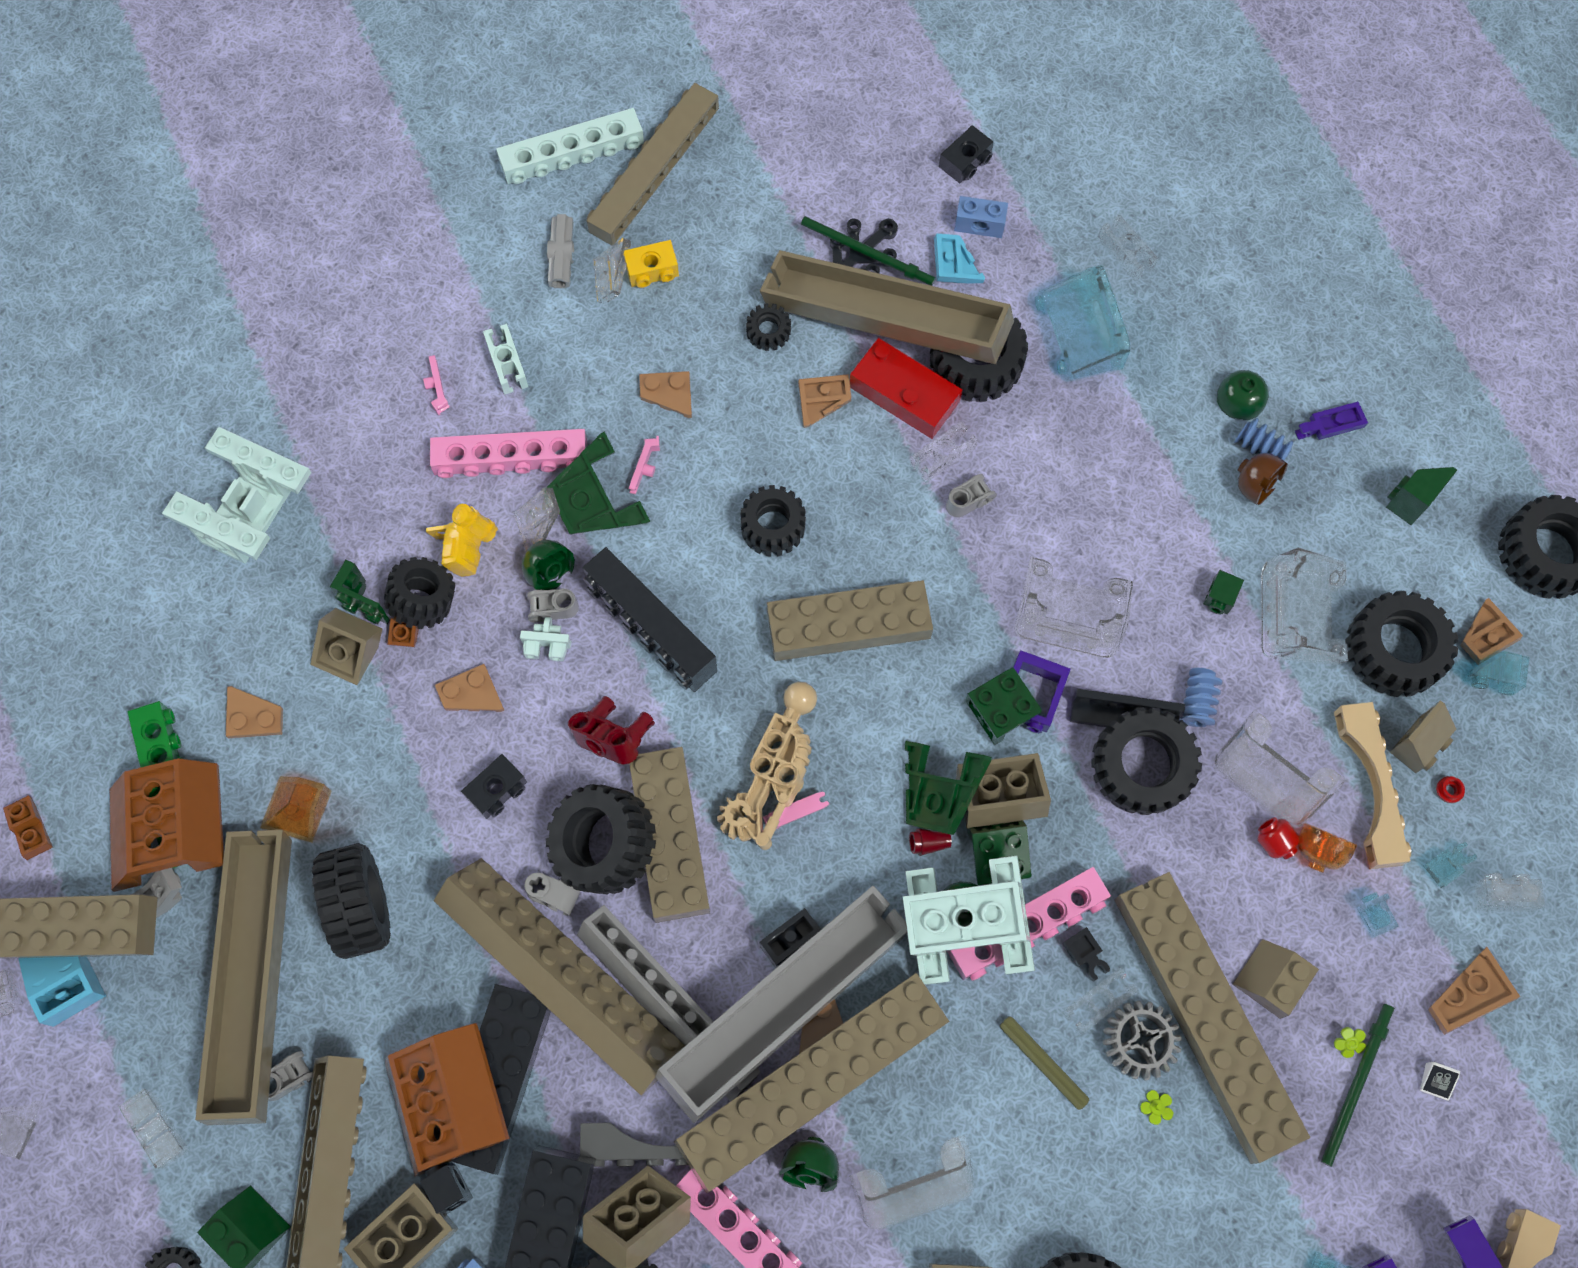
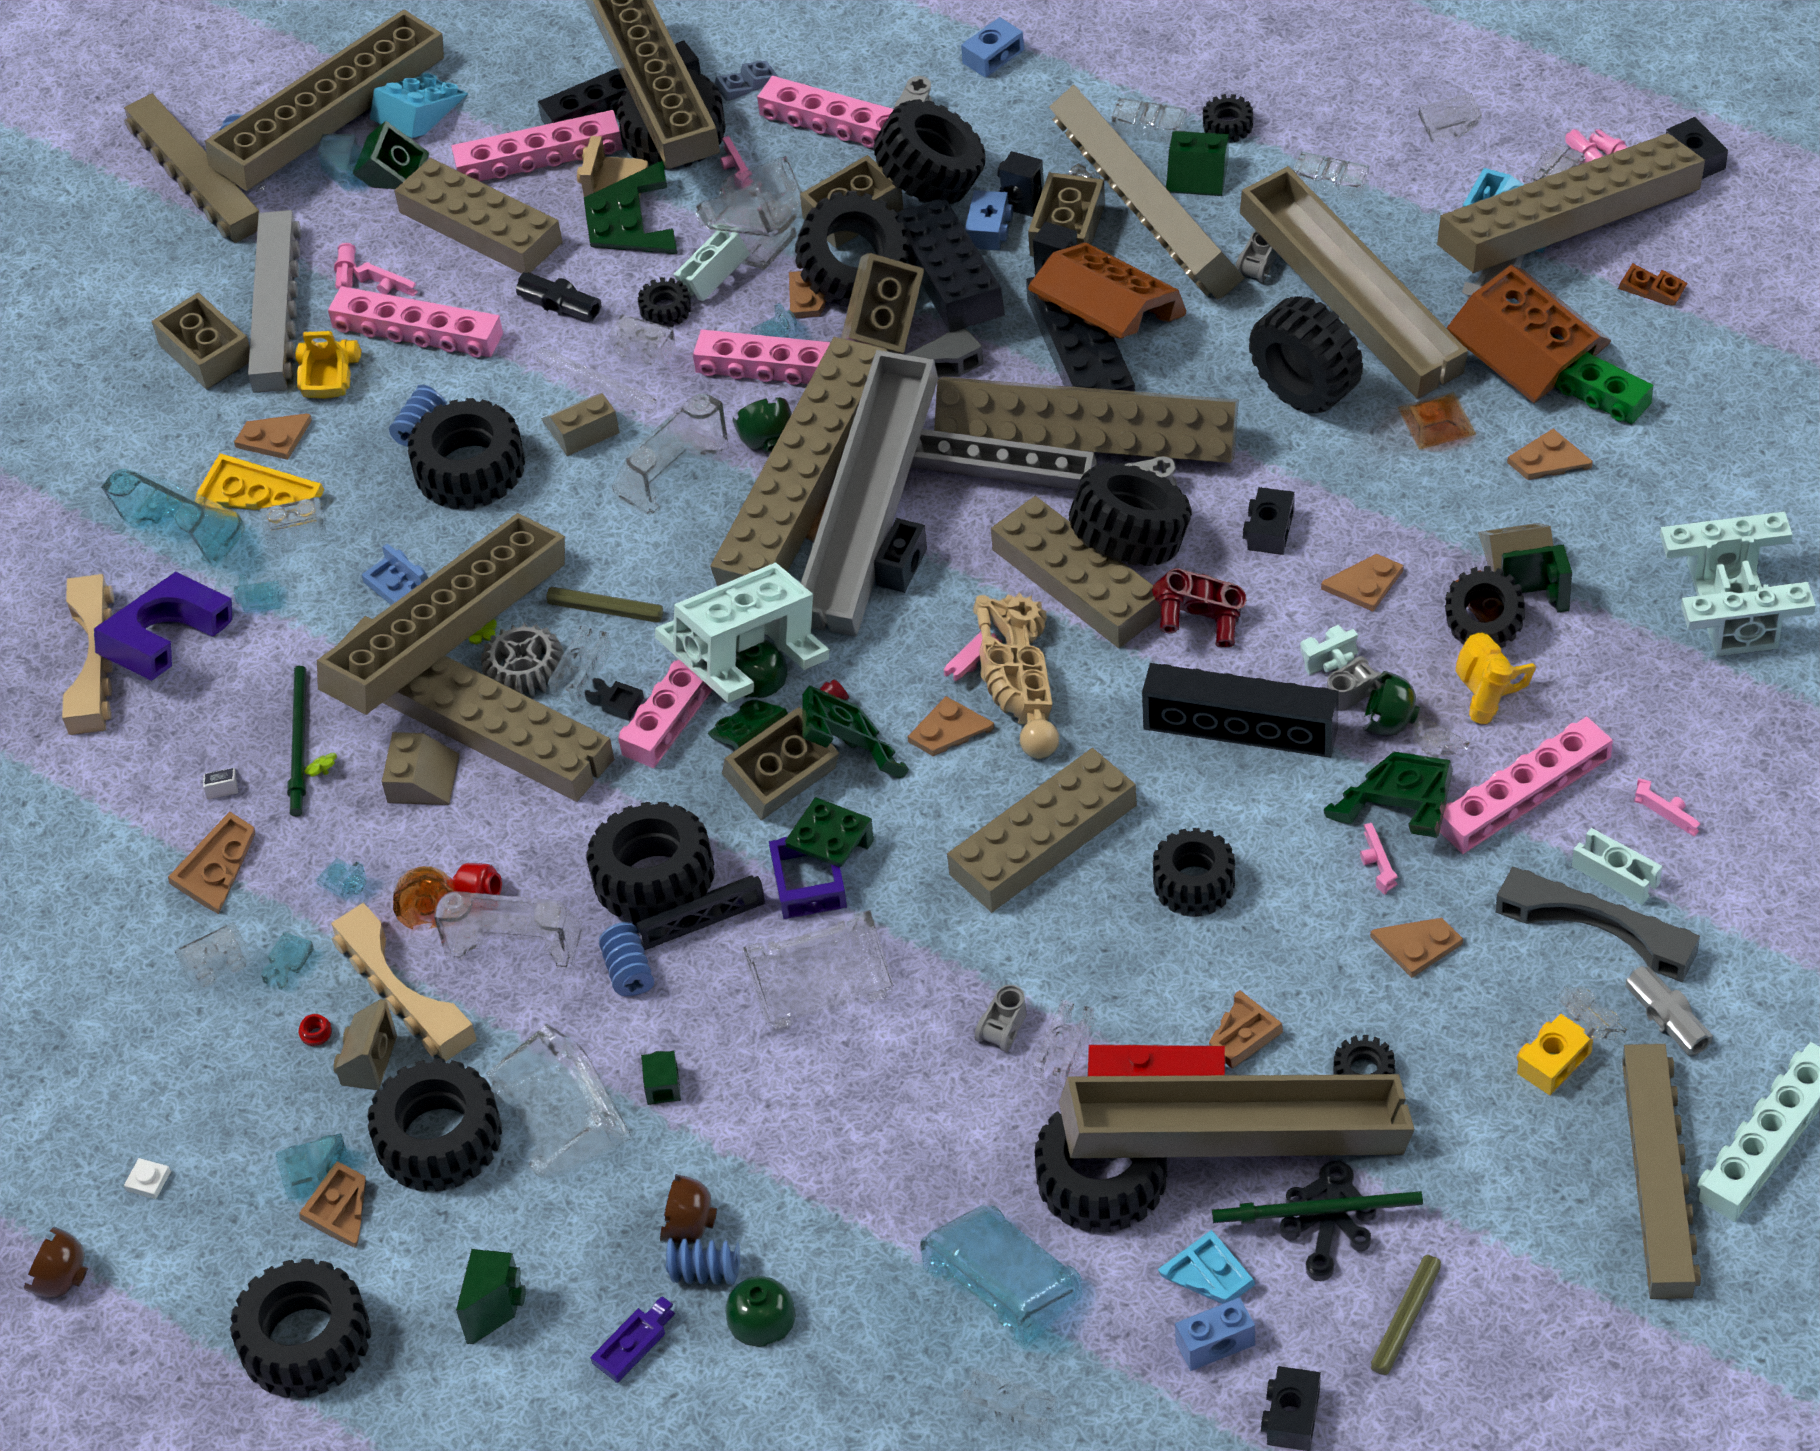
camera: 155 degrees right, 20 degrees down
(575, 368) = (1536, 899): none -> dark grey arch
(853, 761) = (948, 726): none -> medium nougat wing
(860, 174) = (1405, 1314): none -> olive axle
(1202, 1101) = (440, 613): none -> dark tan brick
(1207, 1205) = (394, 575): none -> medium blue bracket

